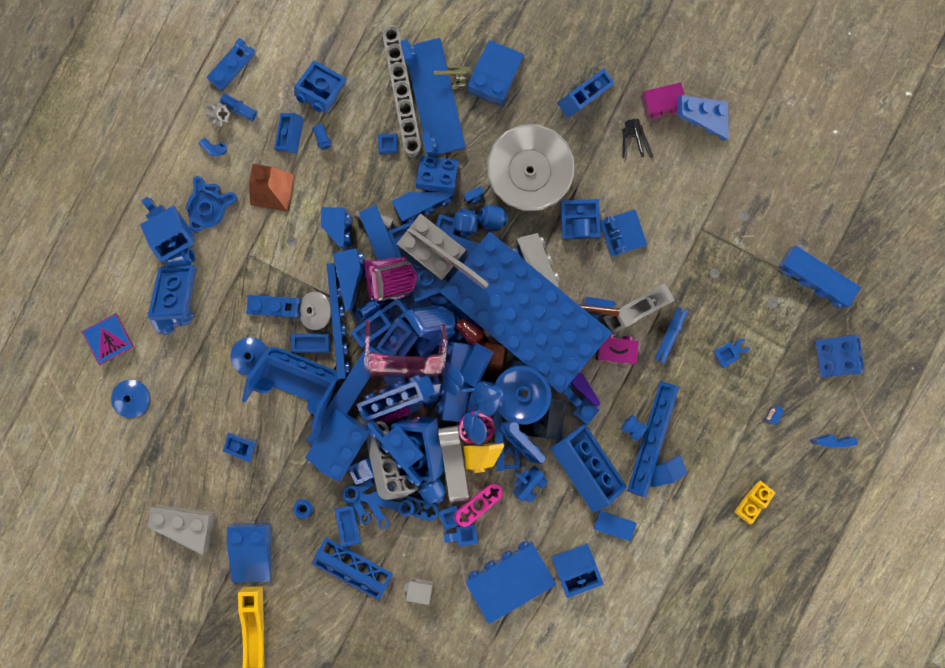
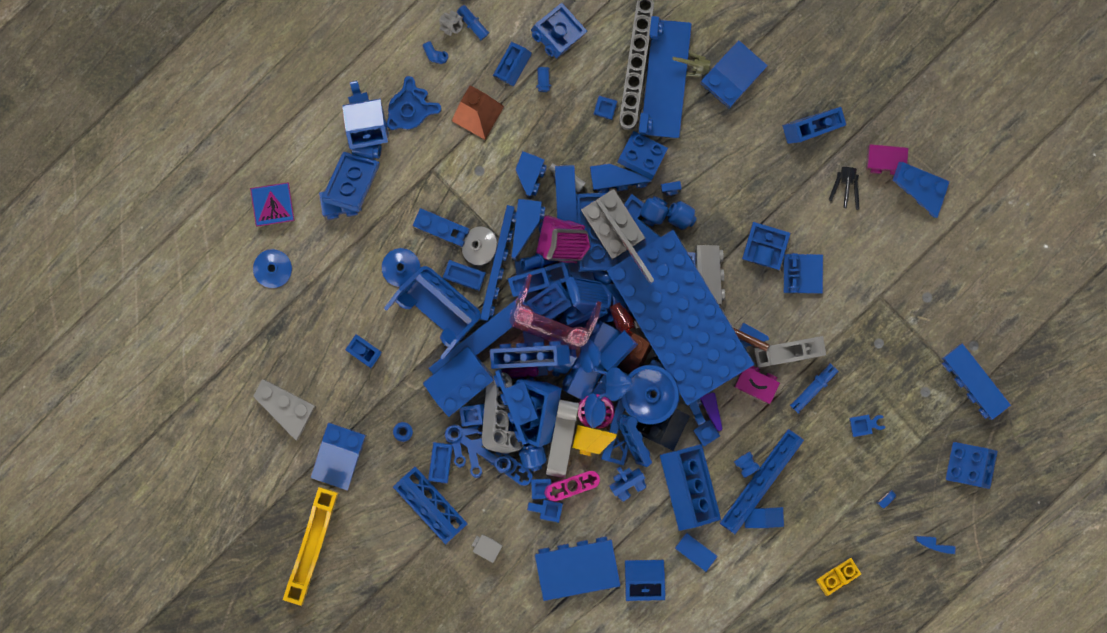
camera: 25 degrees right, 0 degrees up
(532, 148) = (755, 178): light grey dish -> none

